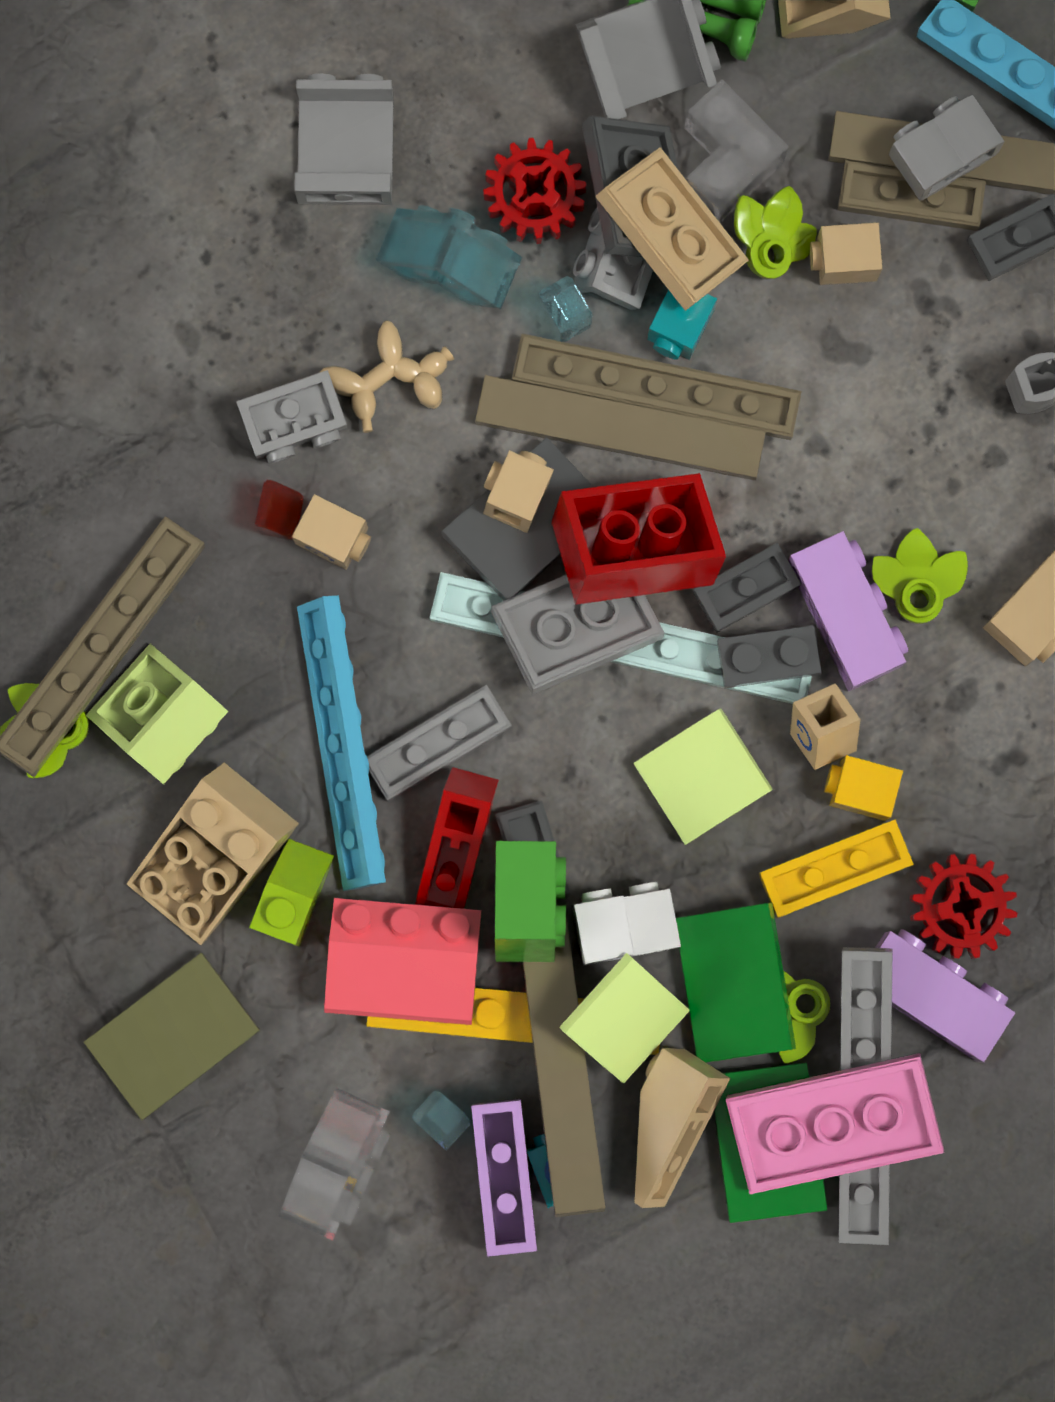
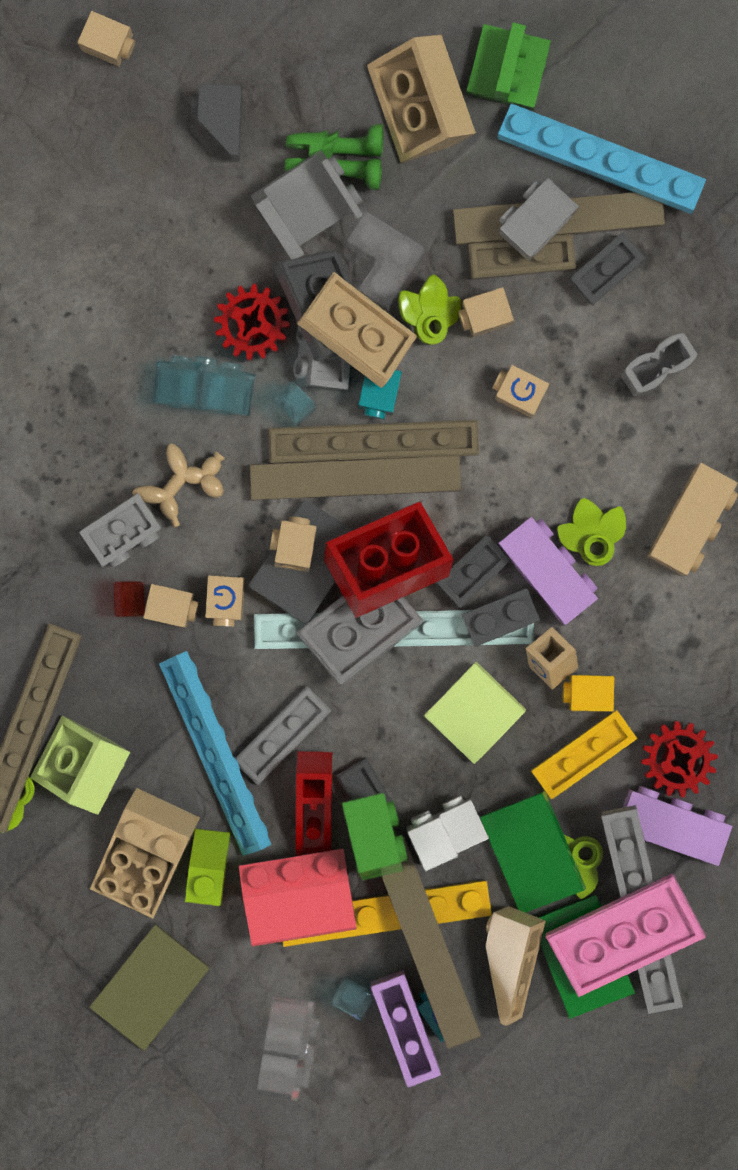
camera: 15 degrees left, 5 degrees up
(345, 140) = (106, 319): light grey panel -> none
(406, 542) = (225, 600): none -> tan brick
(624, 1018) = (462, 900): yellowish green slope -> none
(867, 365) = (520, 390): none -> tan brick

